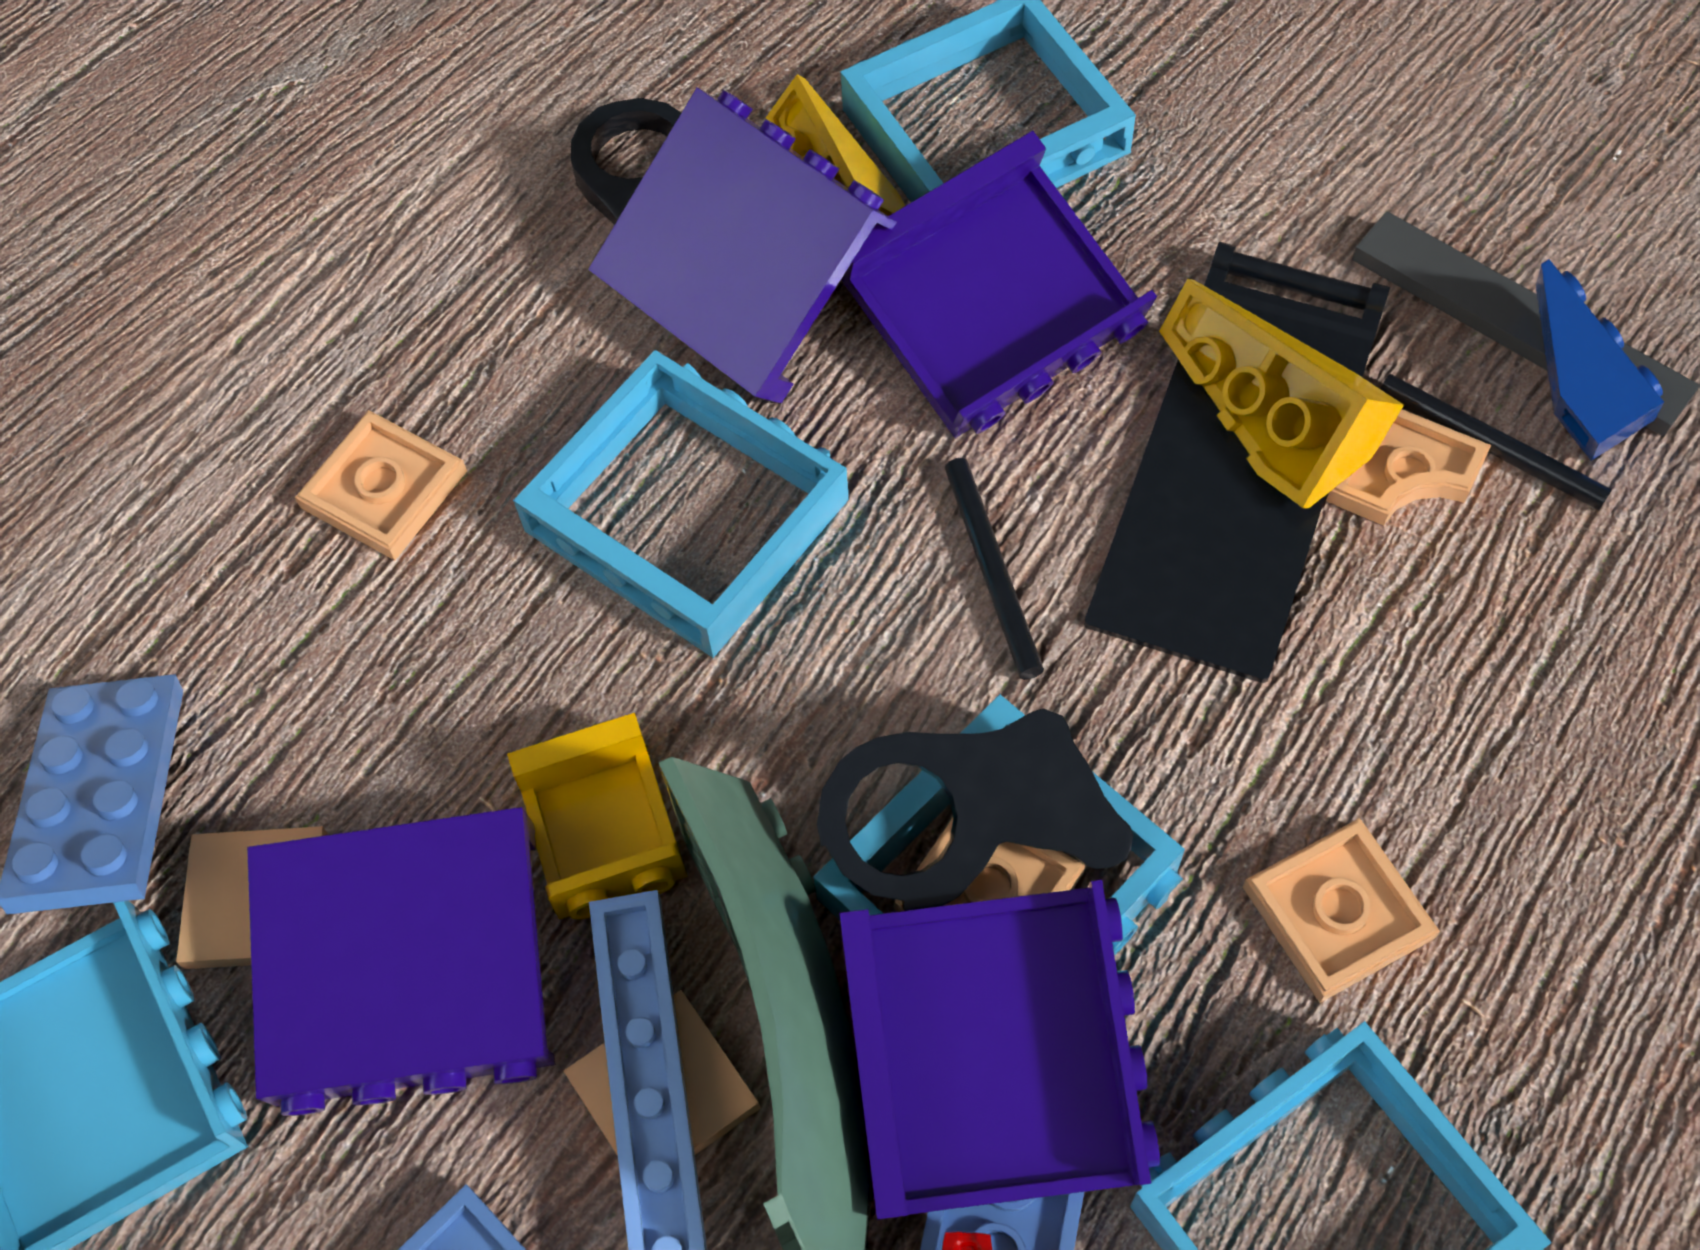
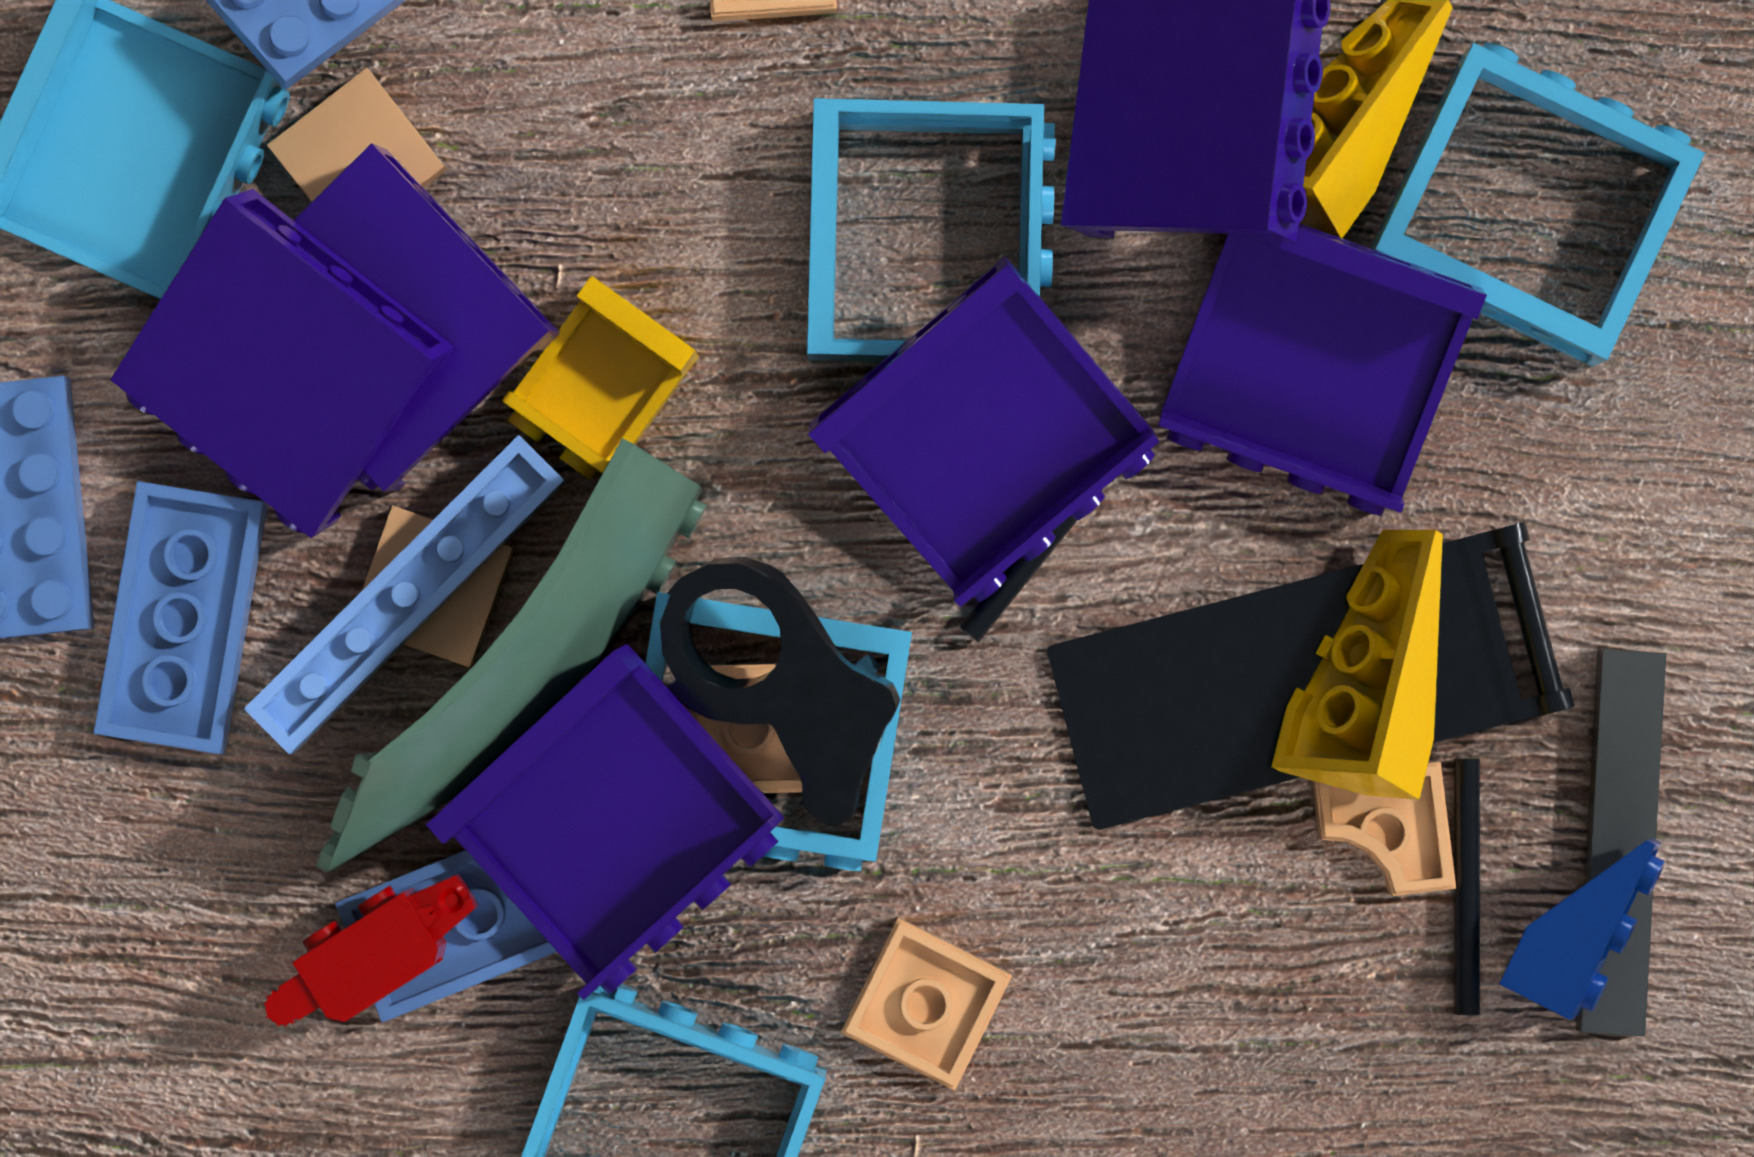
camera: 45 degrees right, 25 degrees up
(355, 1072) = (278, 361): none -> dark purple panel
(875, 542) = (986, 433): none -> dark purple panel

